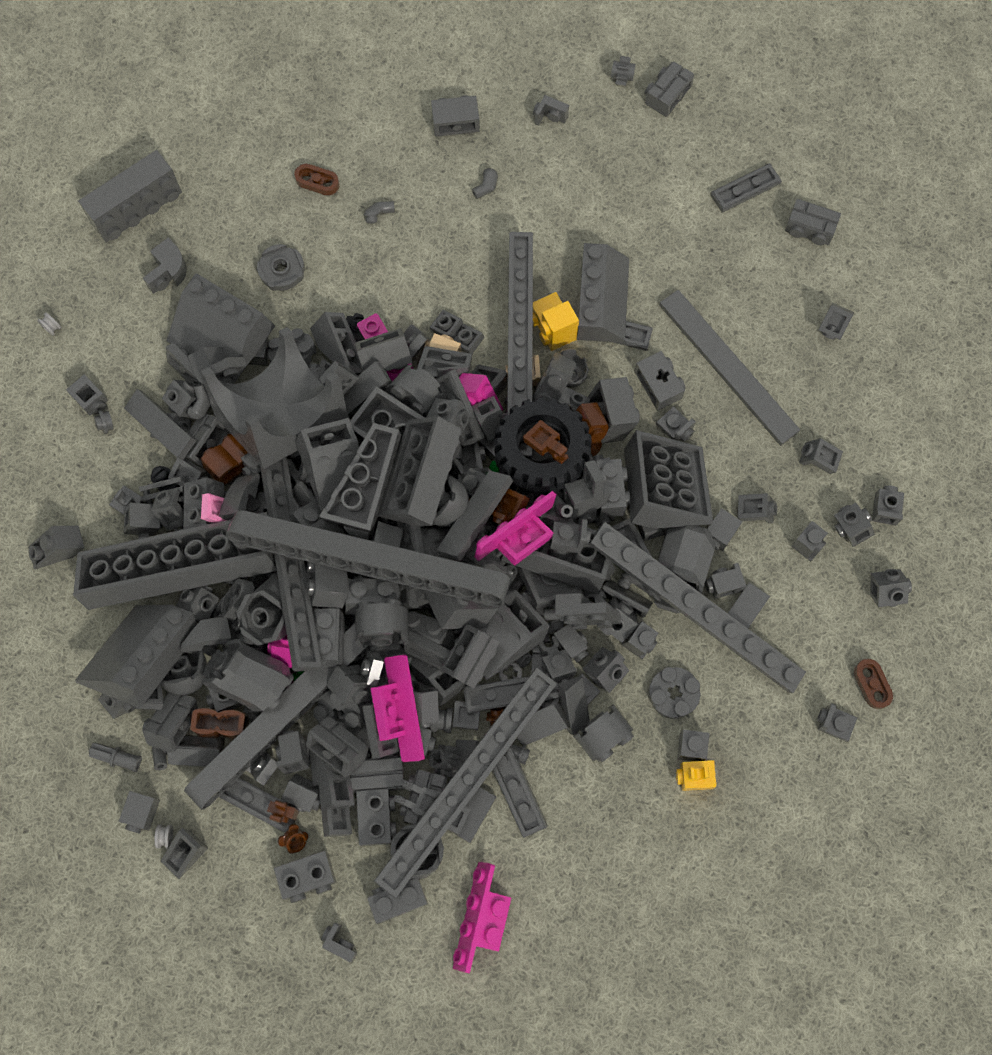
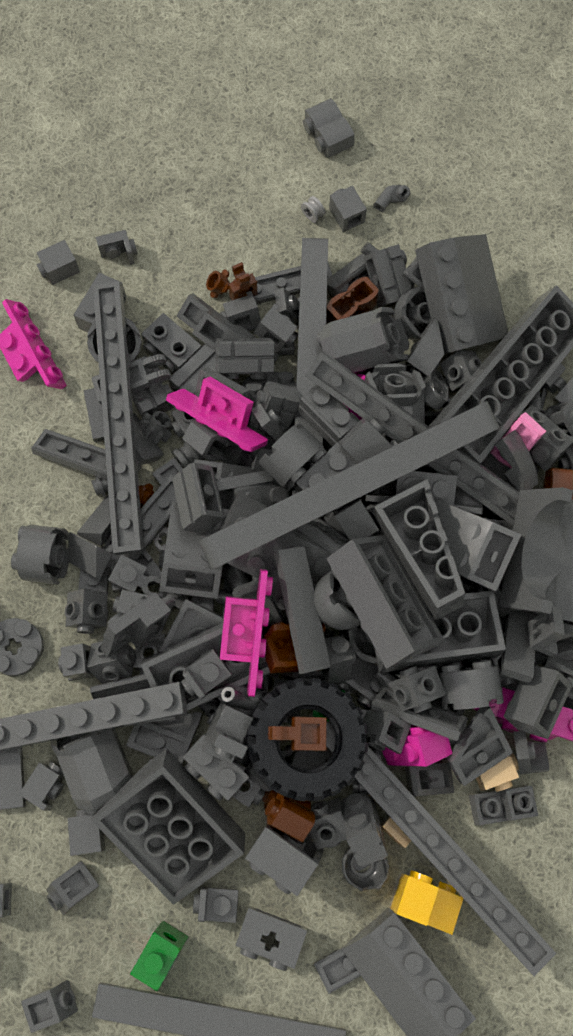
camera: 135 degrees right, 0 degrees up
(78, 899) = (329, 128): none -> dark grey brick
(93, 795) = (391, 194): none -> dark grey arm
(115, 756) = (404, 228): dark grey axle -> none
(183, 852) = (288, 214): dark grey slope -> none
(304, 876) = (185, 267): dark grey brick -> none
(397, 974) = (57, 262): none -> dark grey brick
(736, 423) = (159, 955): none -> green torso

